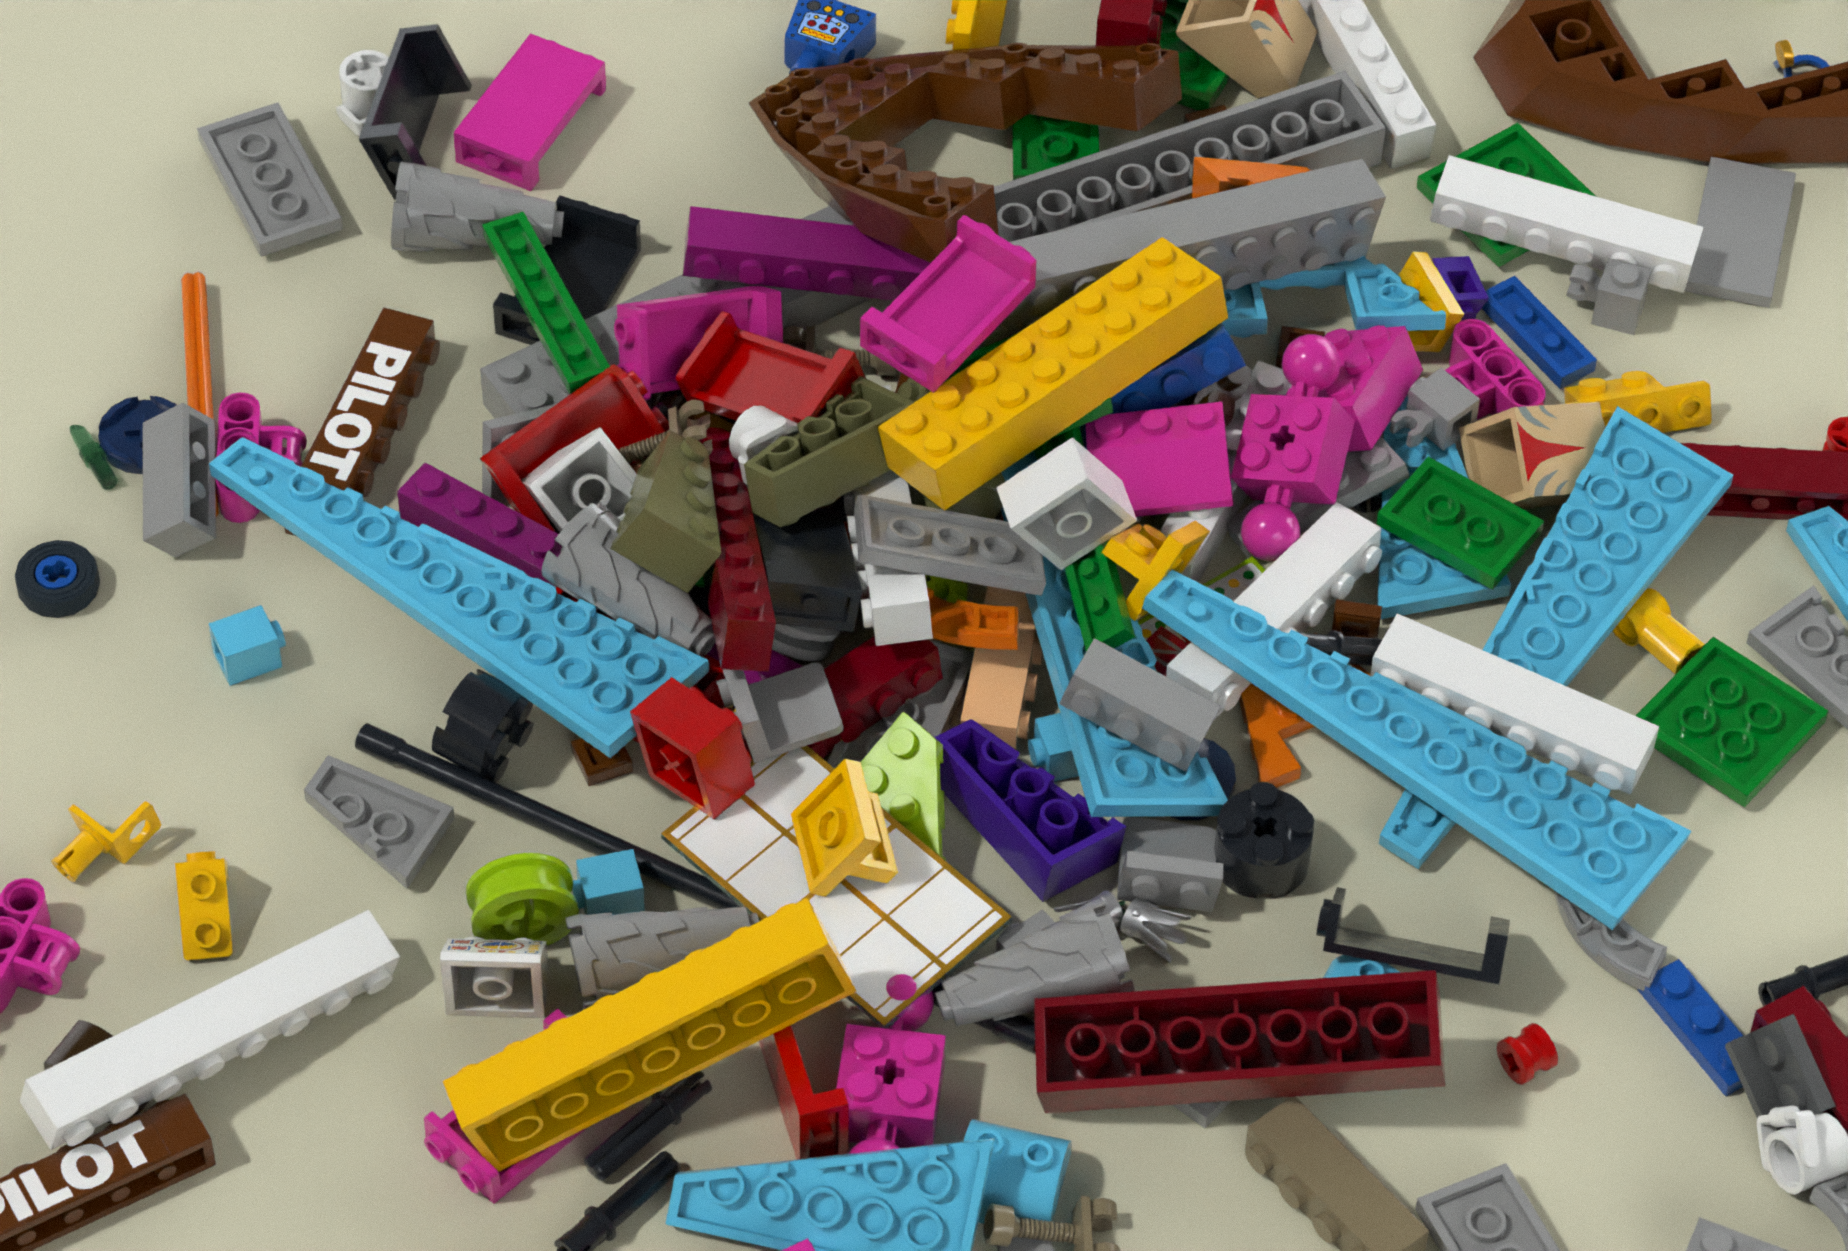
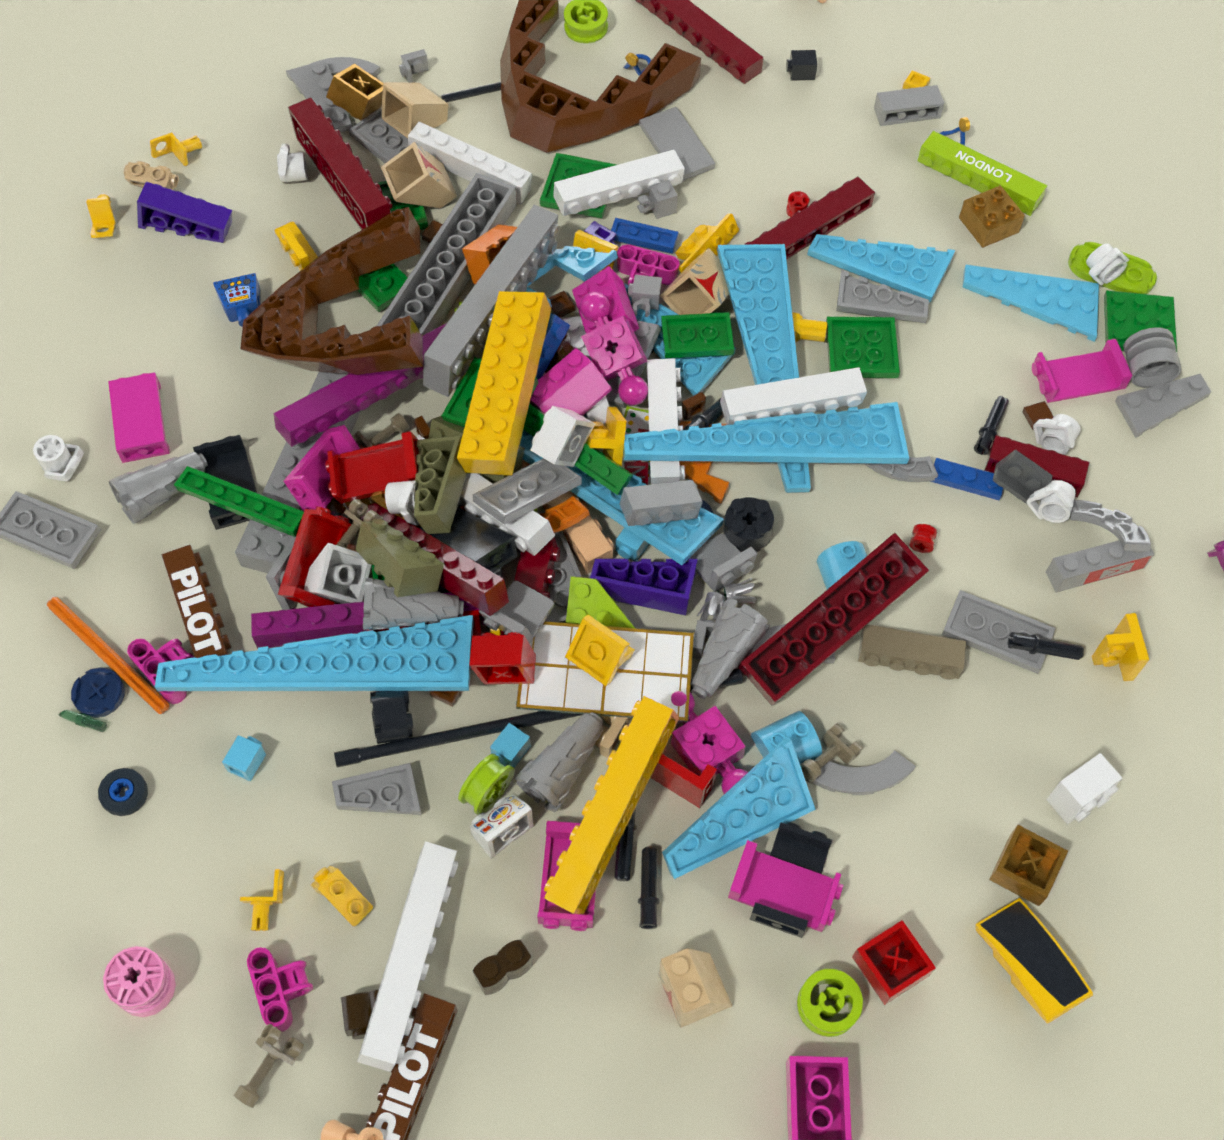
camera: 40 degrees left, 10 degrees up
(178, 480) = (142, 704): light grey brick -> none
(314, 1148) = (496, 970): none -> dark brown brick
(406, 97) = (72, 429): black panel -> none
(950, 305) = (443, 381): dark pink panel -> none
(1411, 953) = (878, 512): black panel -> none

